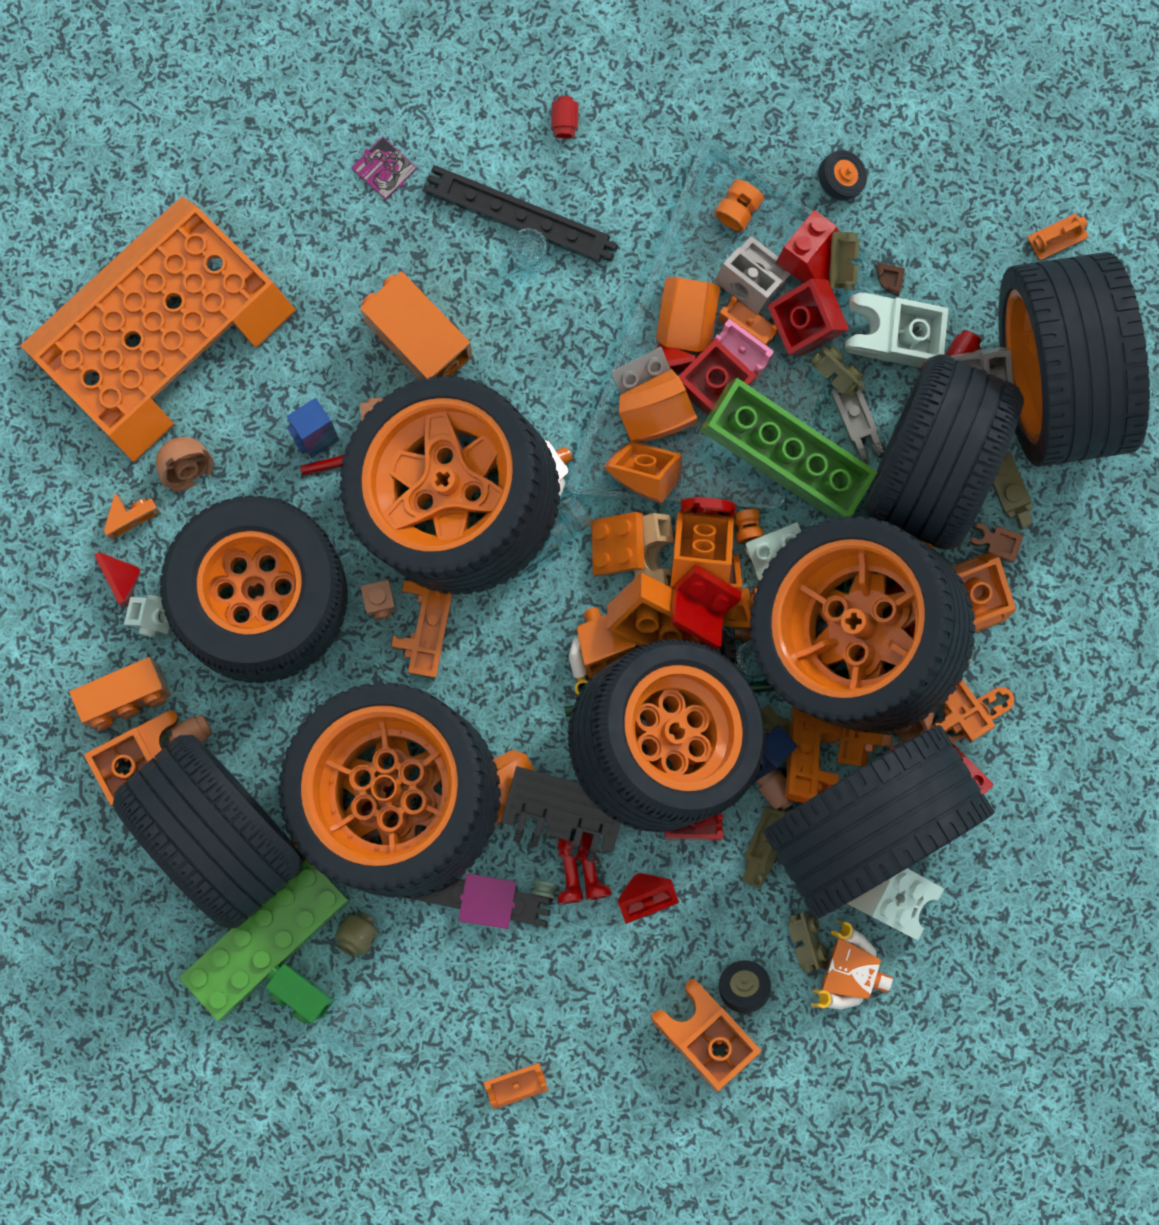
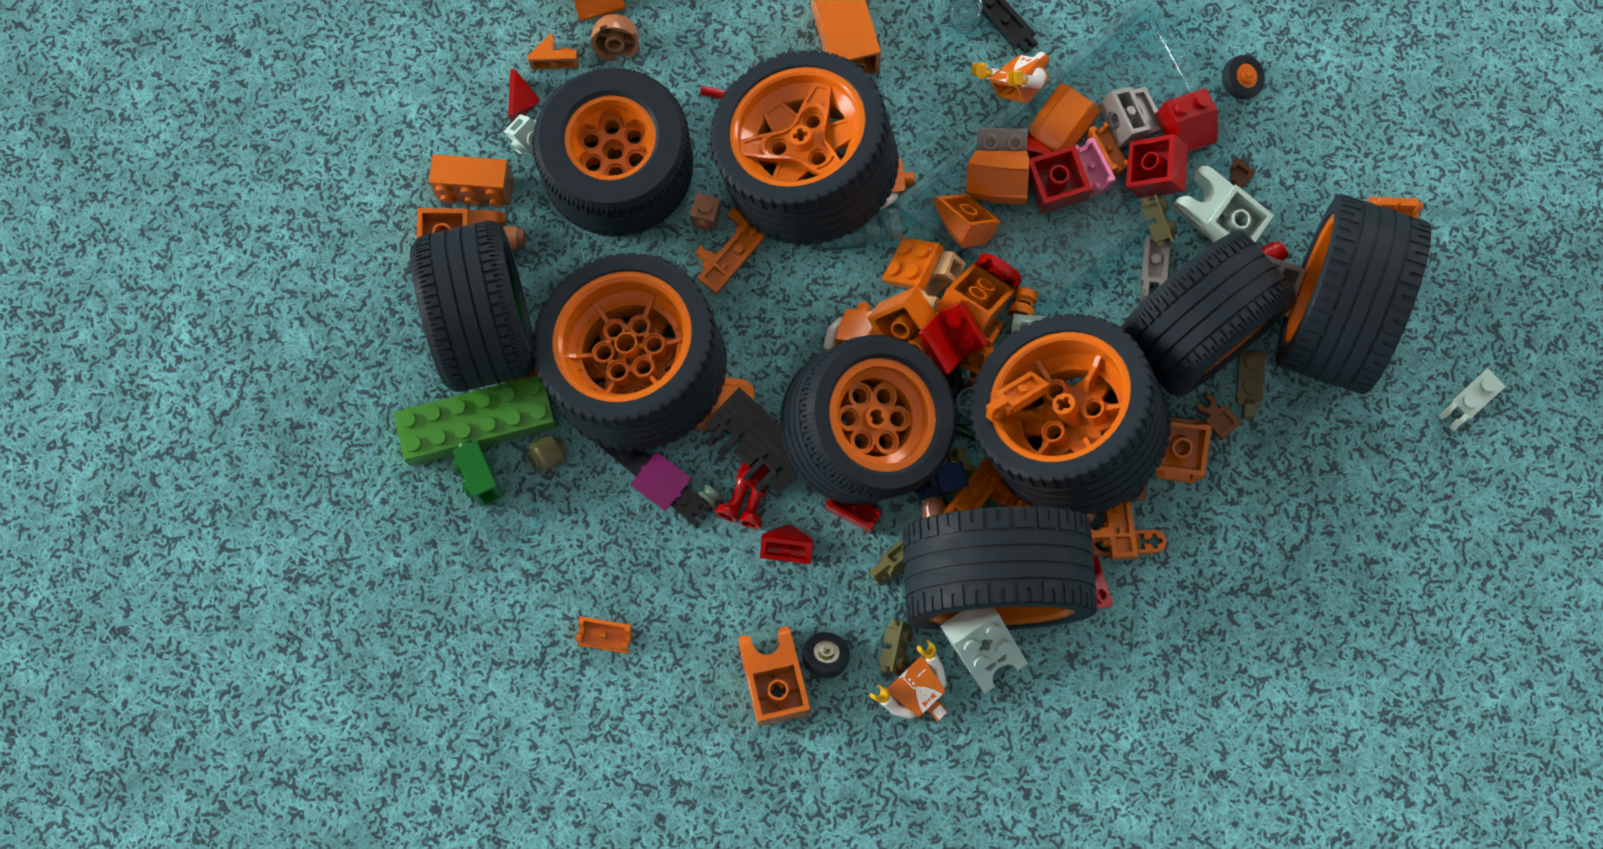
camera: 30 degrees right, 5 degrees down
(311, 428) = (724, 56): blue brick -> none
(620, 295) = (1018, 78): none -> torso
(736, 209) = (1146, 59): orange wheel -> none
(788, 450) = (1083, 252): bright green brick -> none
(803, 636) = (1016, 396): none -> orange hinge
(844, 249) = (1205, 141): olive hinge -> none

